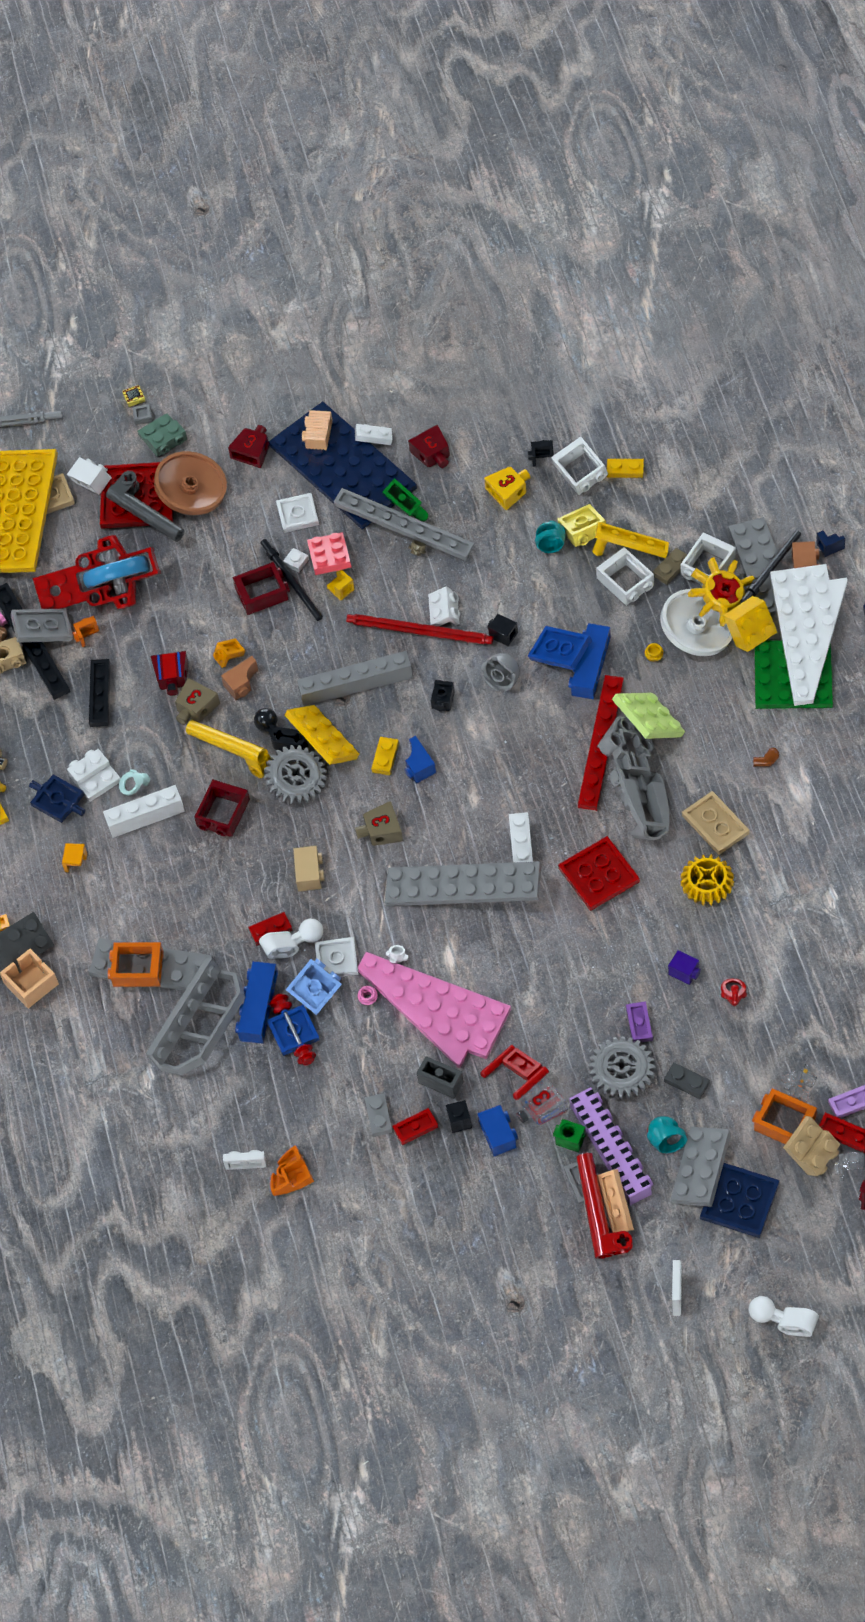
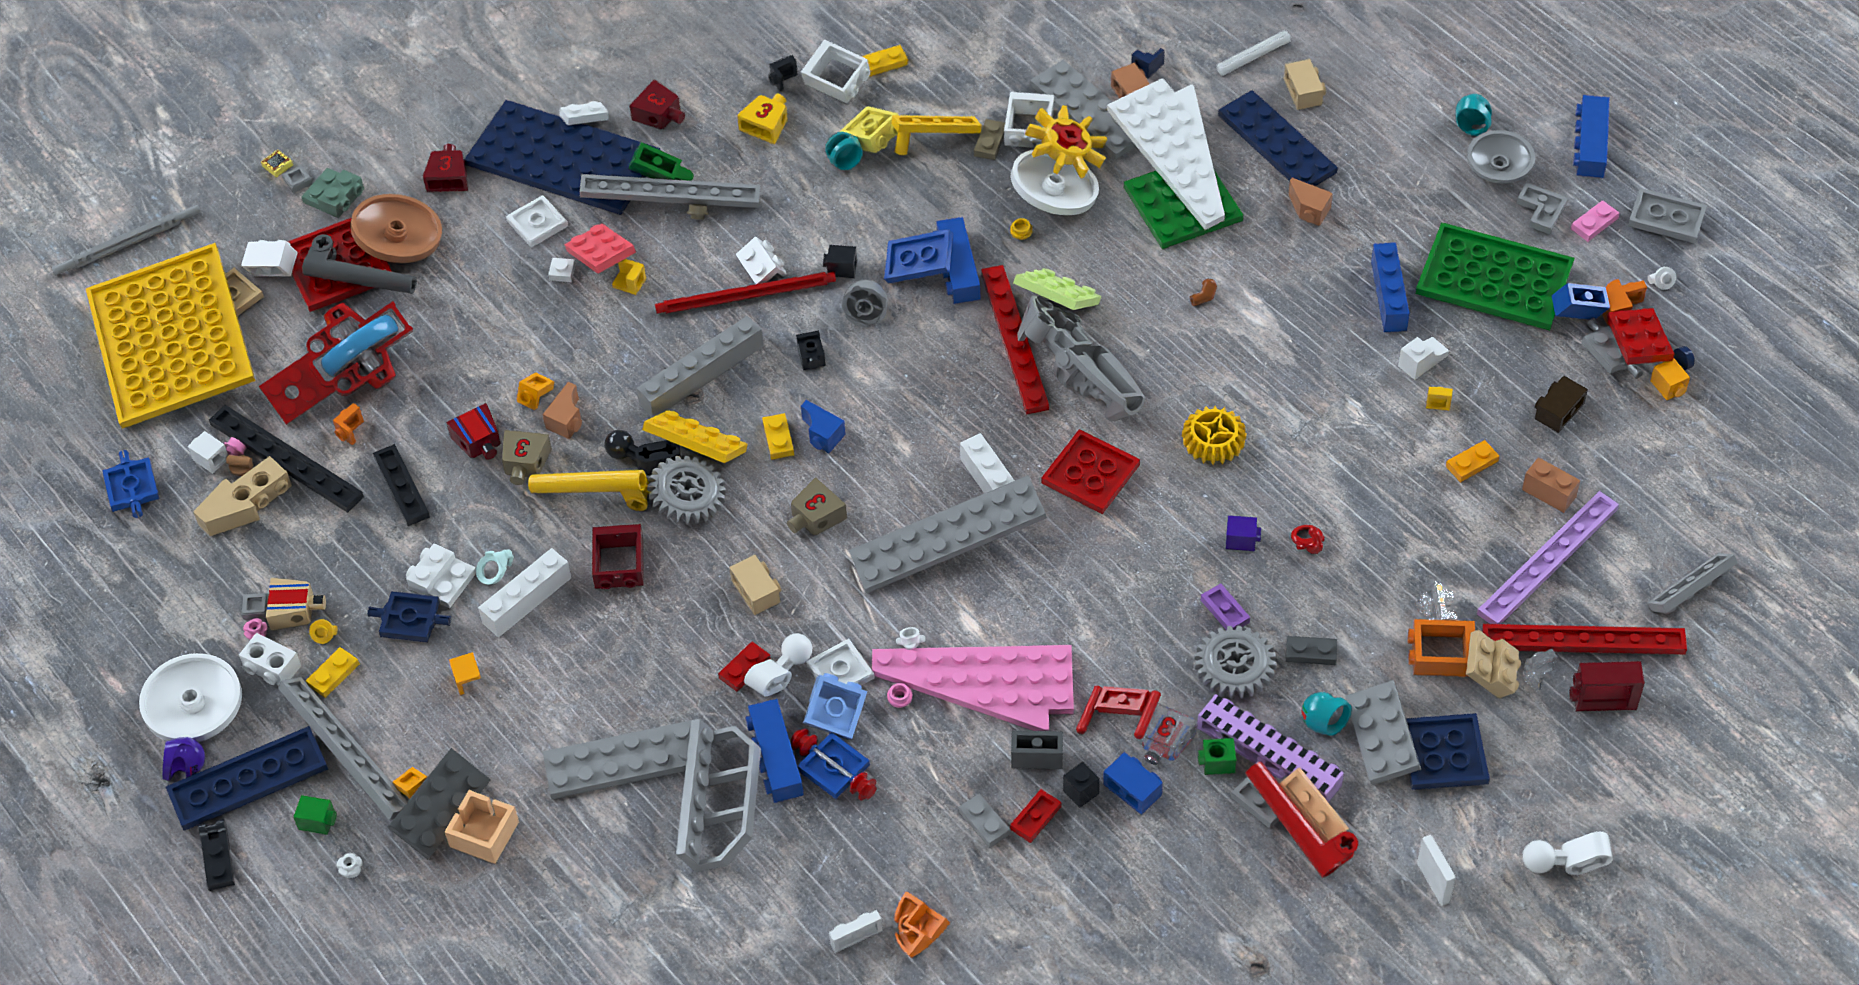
camera: 30 degrees left, 5 degrees down
(41, 625) = (293, 434): light grey plate -> none
(150, 979) = (615, 778): orange window -> none
(265, 600) = (549, 322): dark red window -> none
(273, 555) = (533, 273): black bar -> none
(318, 429) = (519, 125): light nougat brick -> none
(617, 562) = (951, 149): white window -> none
(715, 823) = (1188, 375): tan plate -> none
(750, 623) = (1114, 163): yellow brick -> none
(753, 589) = (1099, 127): black bar -> none

